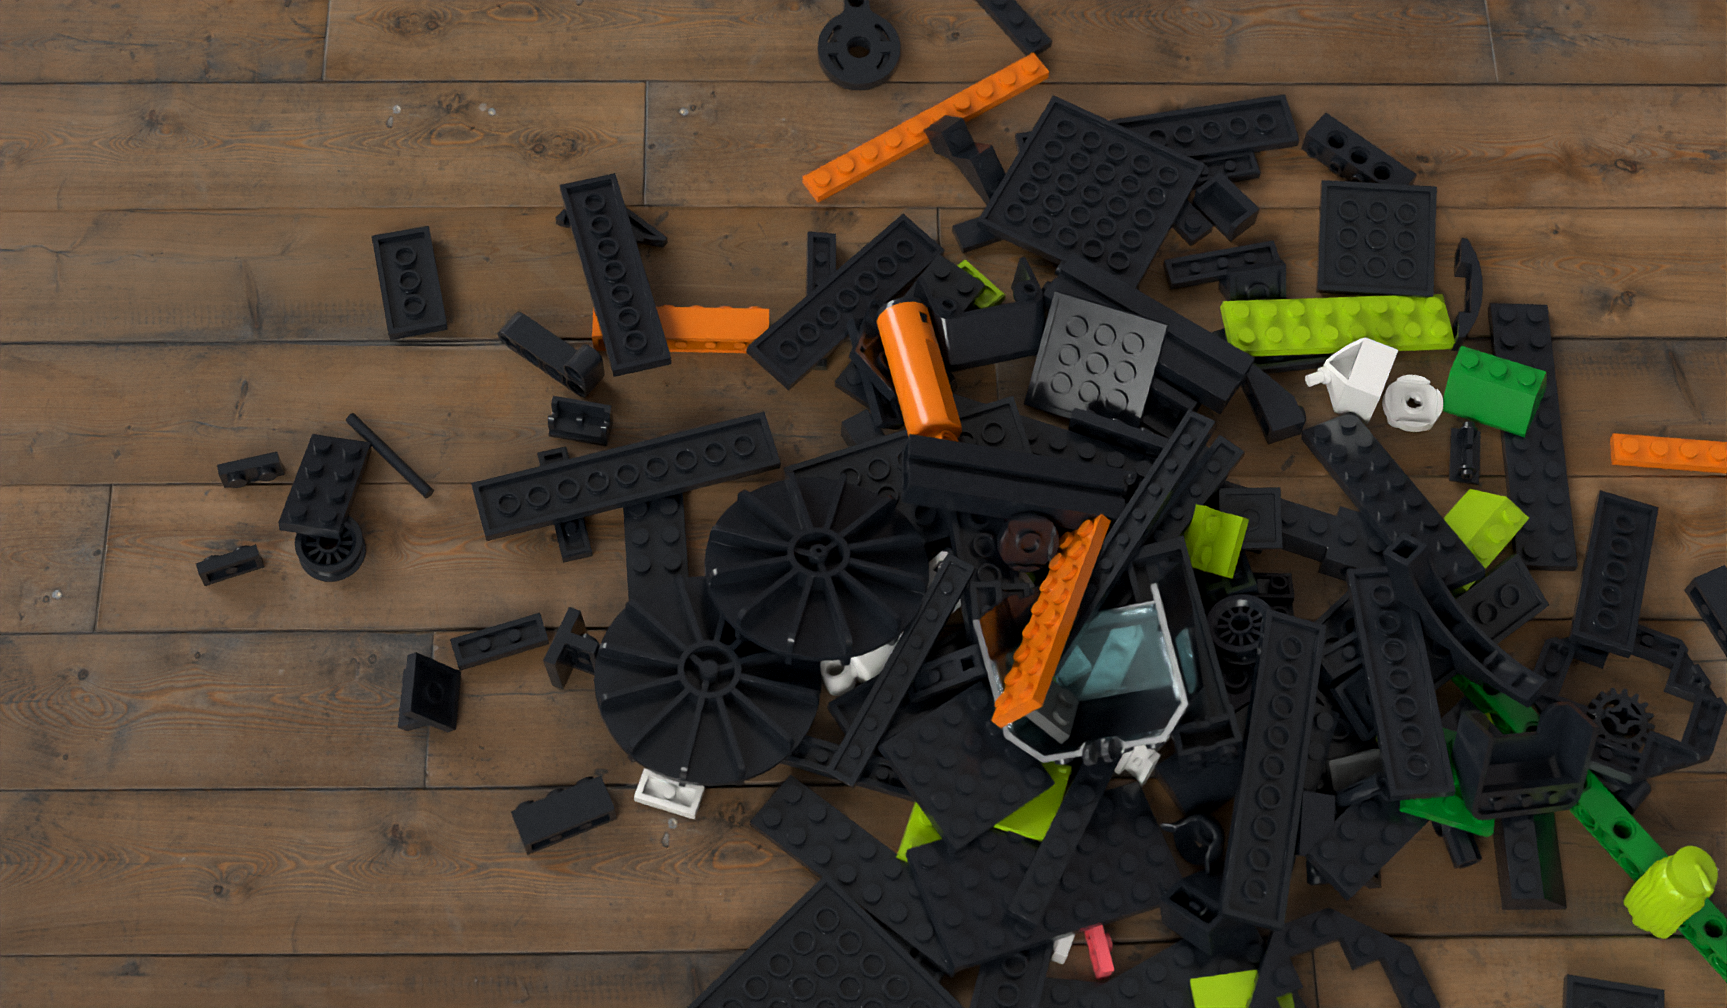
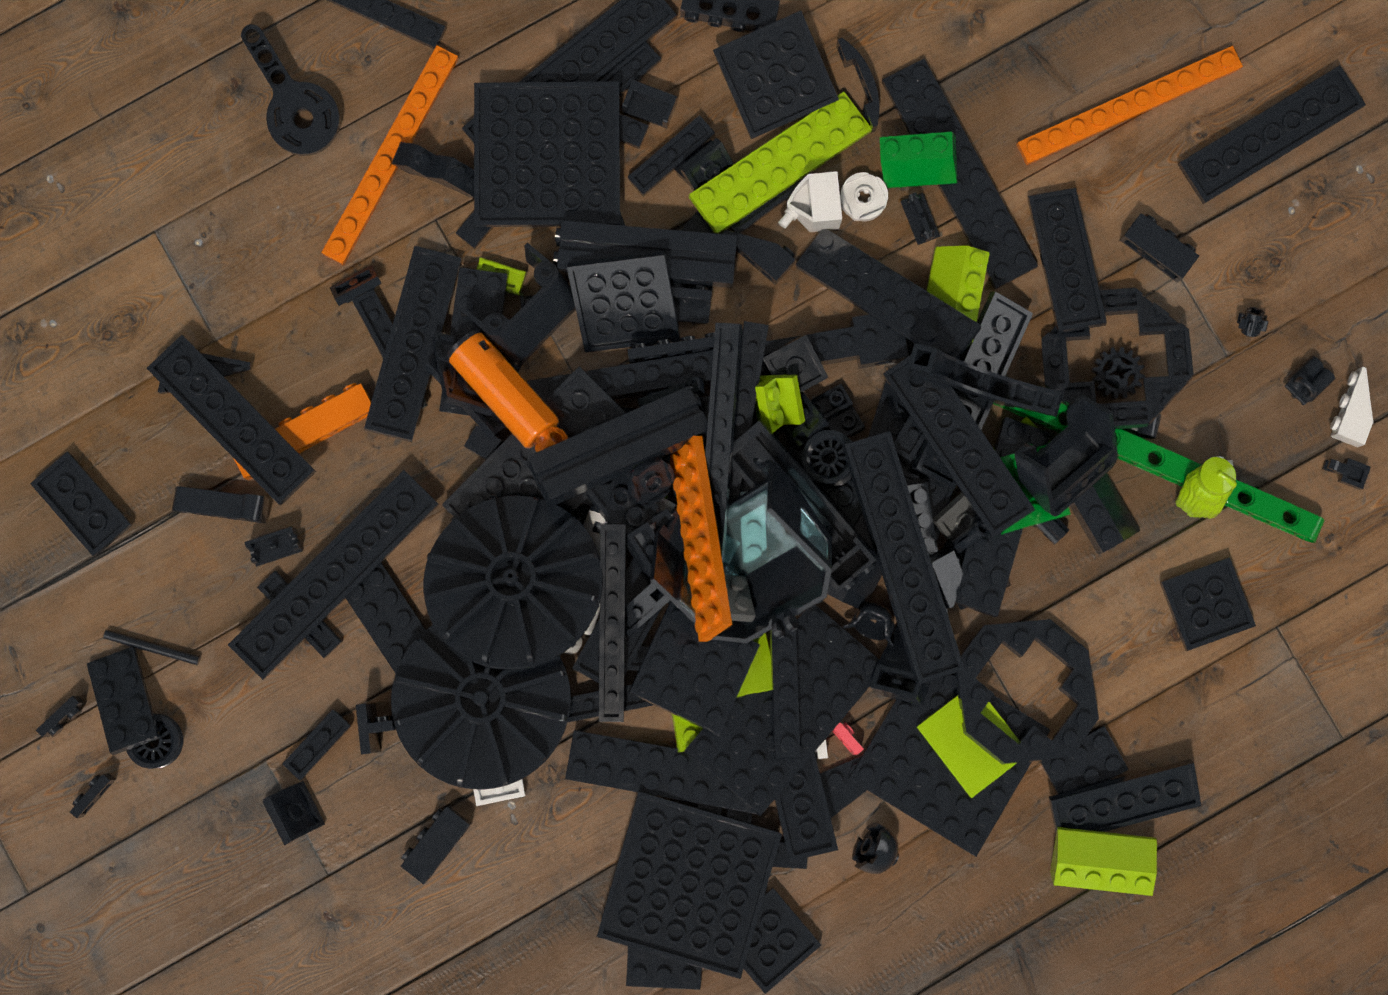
camera: 30 degrees left, 20 degrees up
(819, 222) = (355, 285): none -> black plate

